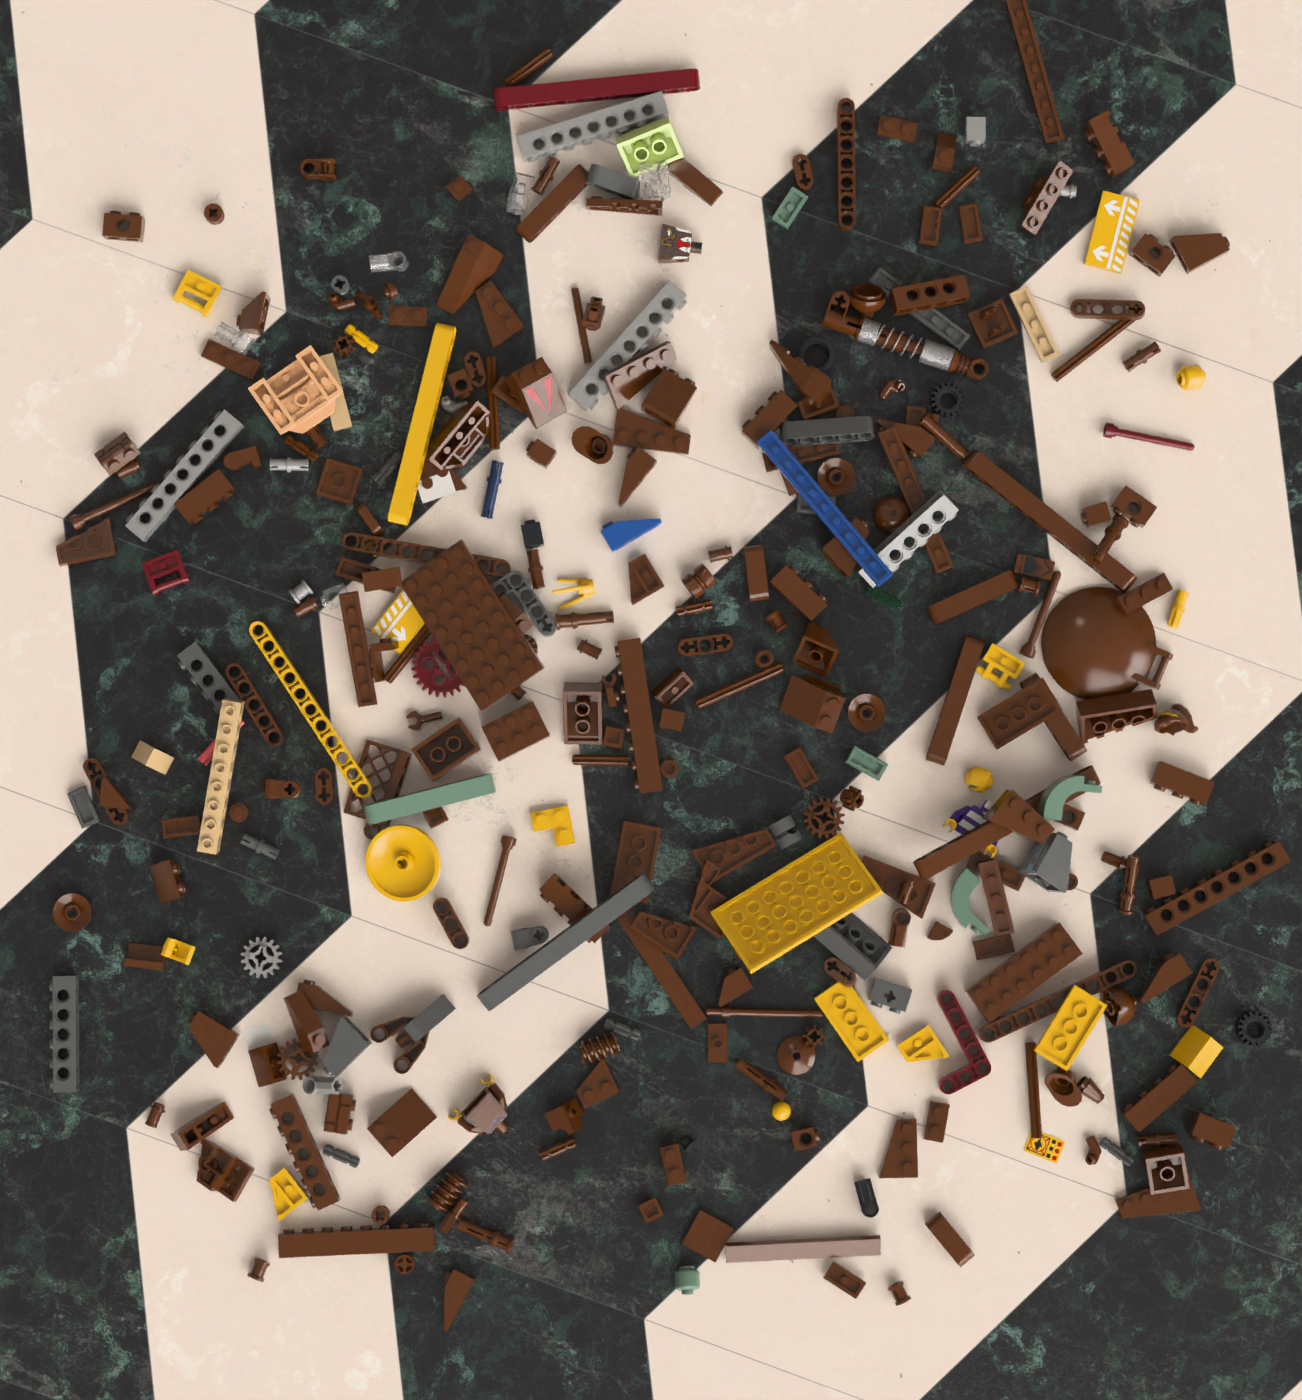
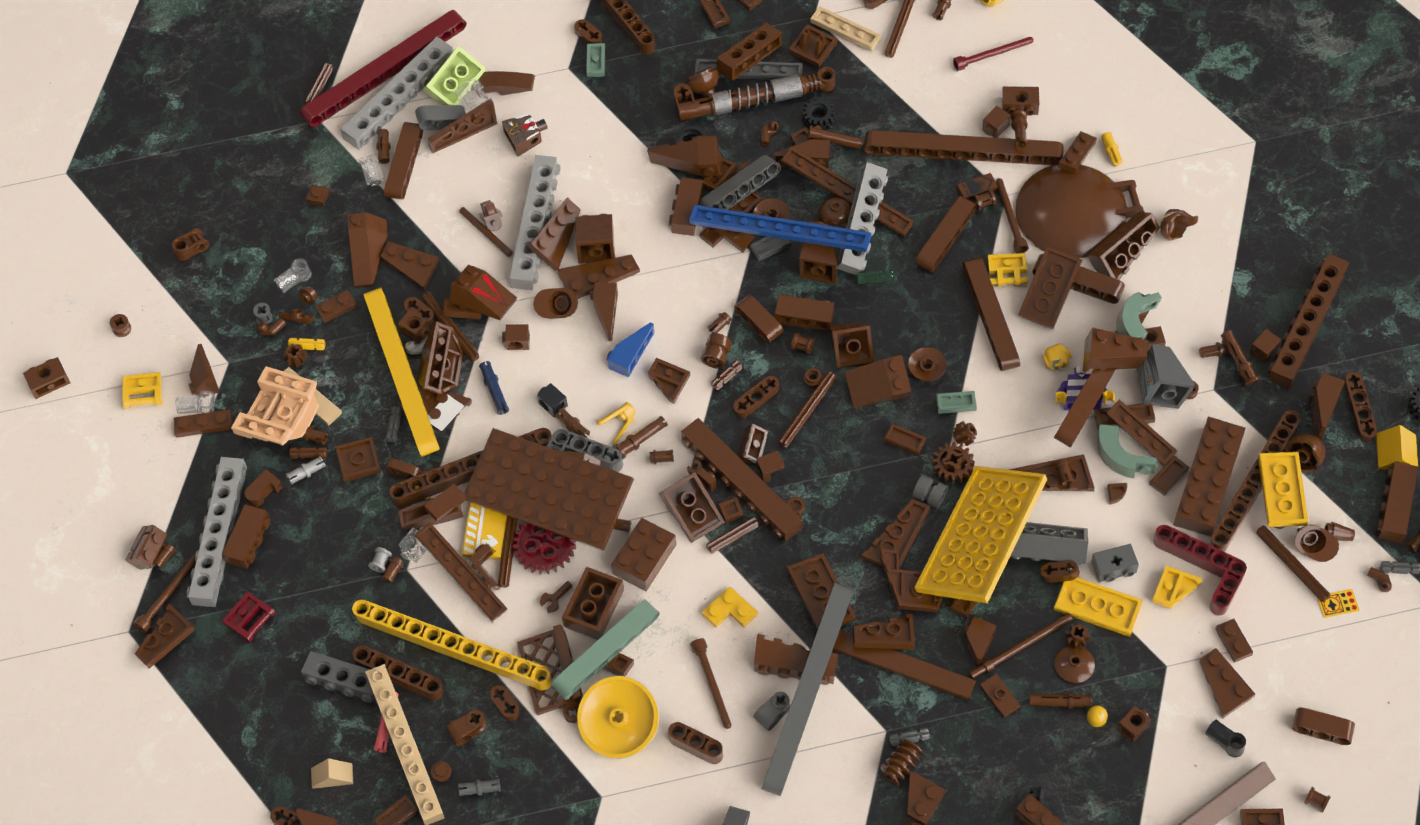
camera: 30 degrees left, 25 degrees down
(899, 930) = (1081, 508): reddish brown piece -> none
(1181, 783) = (1218, 263): reddish brown brick -> none

